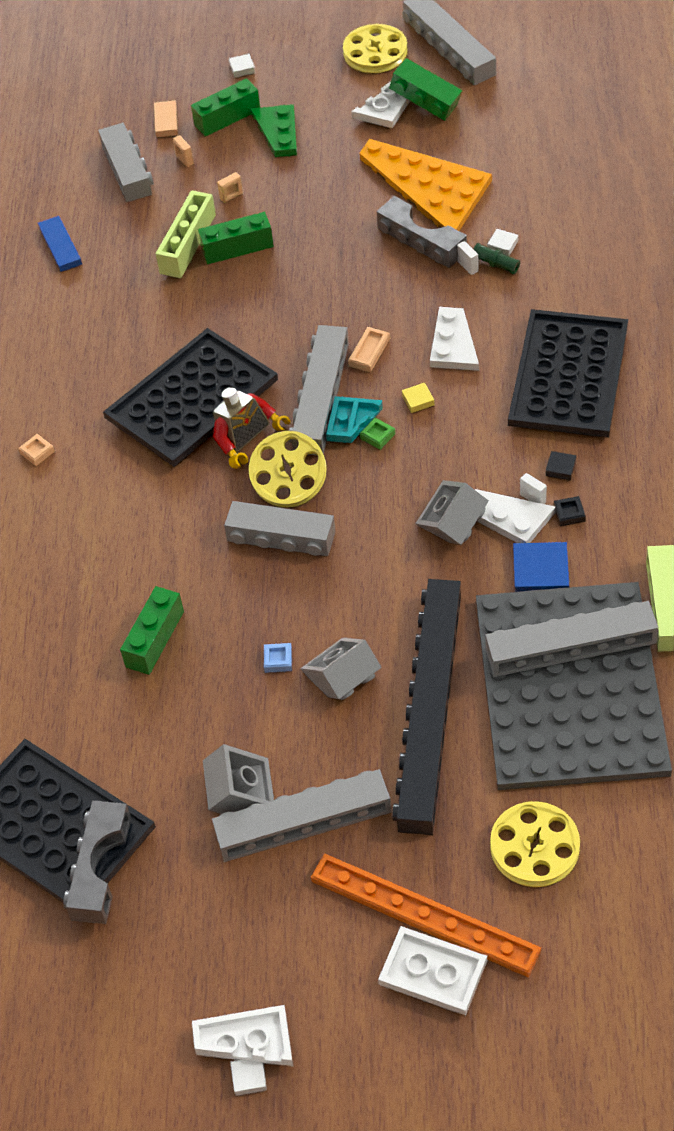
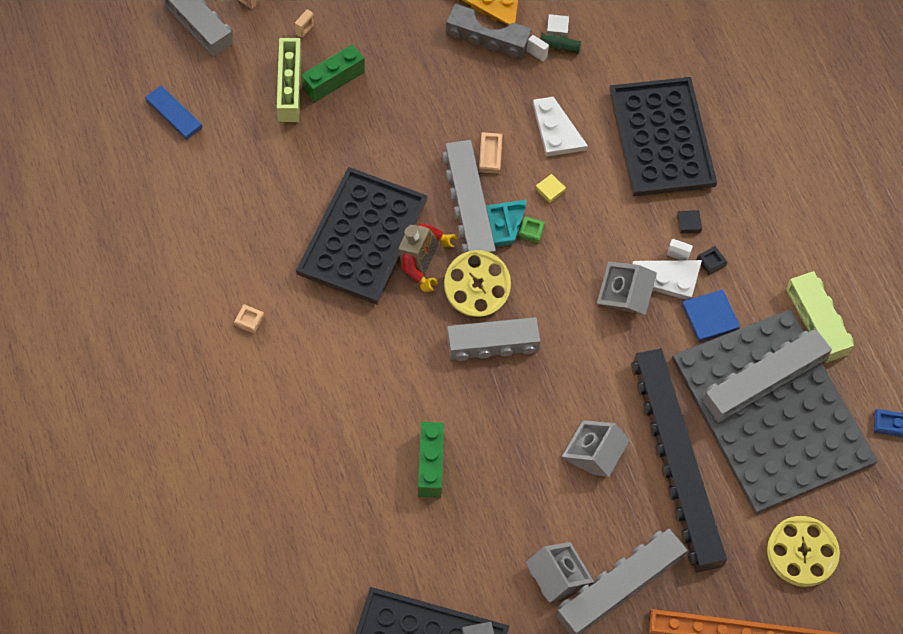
camera: 30 degrees left, 10 degrees up
(277, 657) = (539, 453): light blue tile -> none

